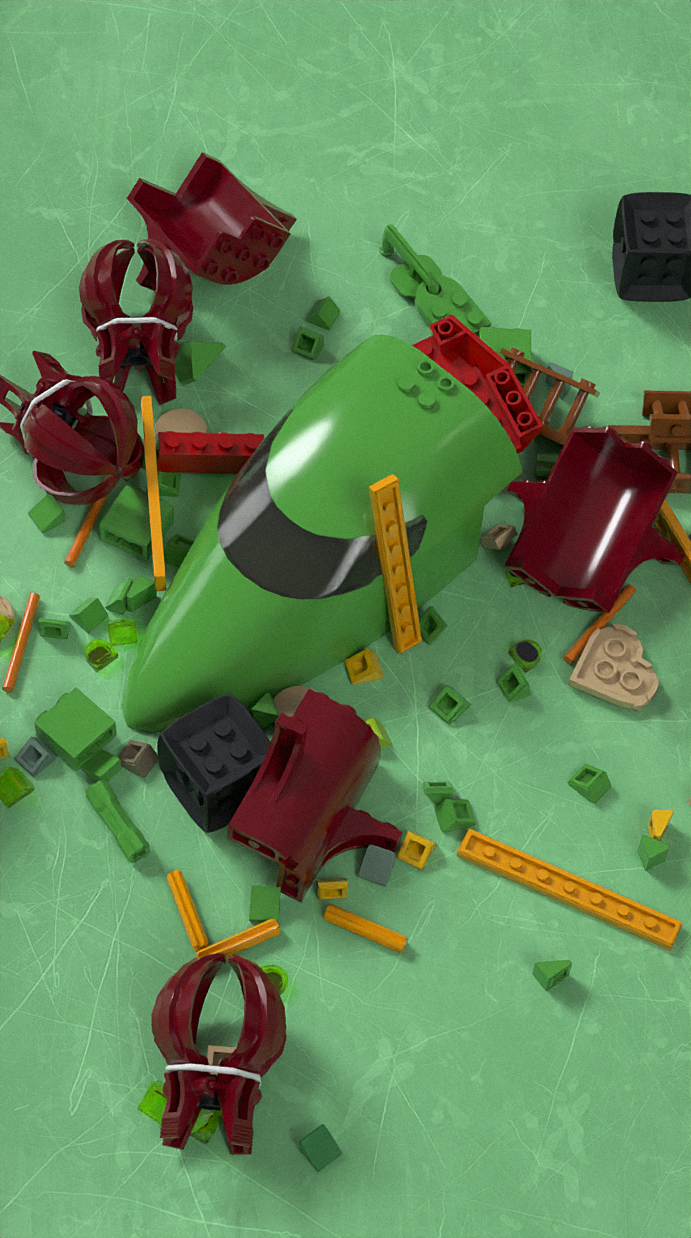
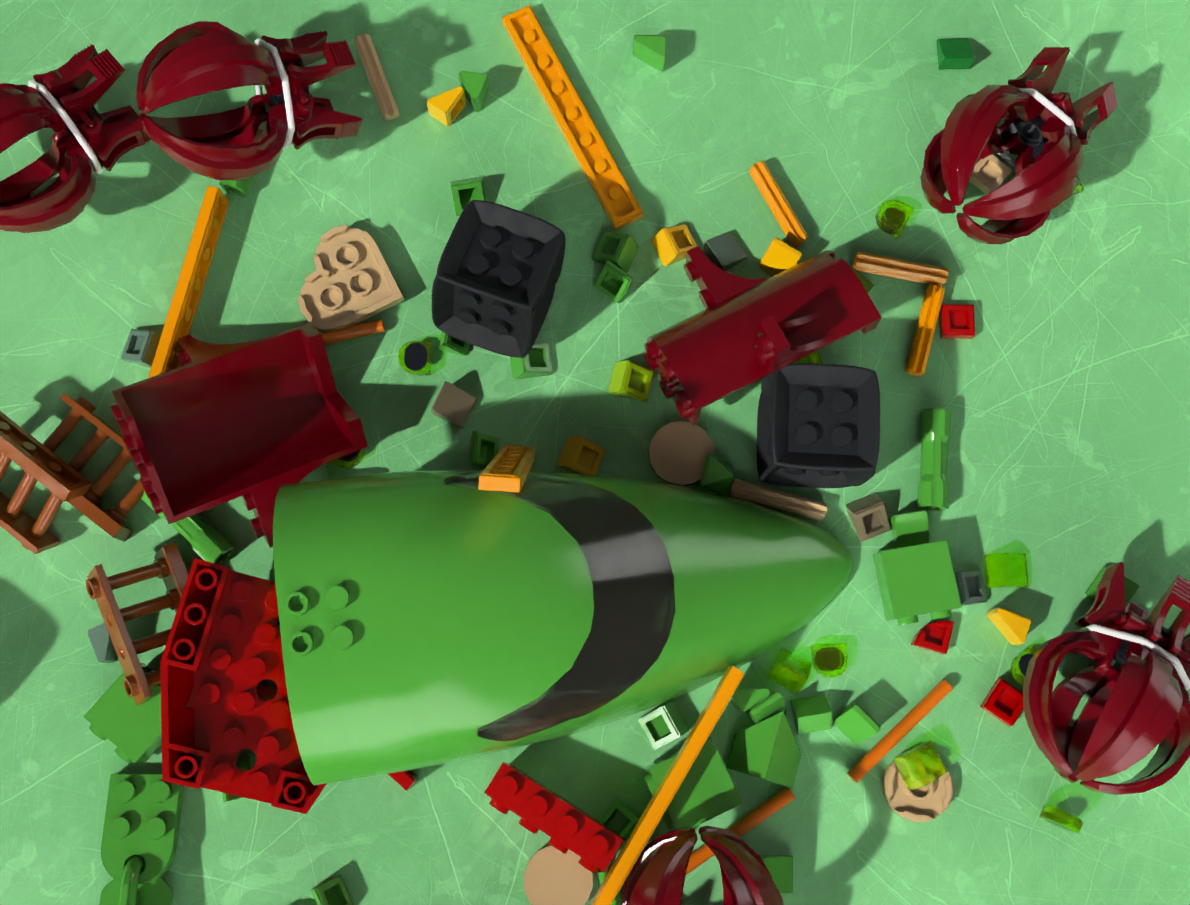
camera: 145 degrees left, 20 degrees up
(34, 709) = (934, 636): none -> red tile
(99, 569) = (767, 751): none -> bright green slope
(168, 935) = (957, 321): none -> red tile
(476, 641) = (453, 404): none -> dark tan slope
(510, 707) = (497, 278): none -> black piece

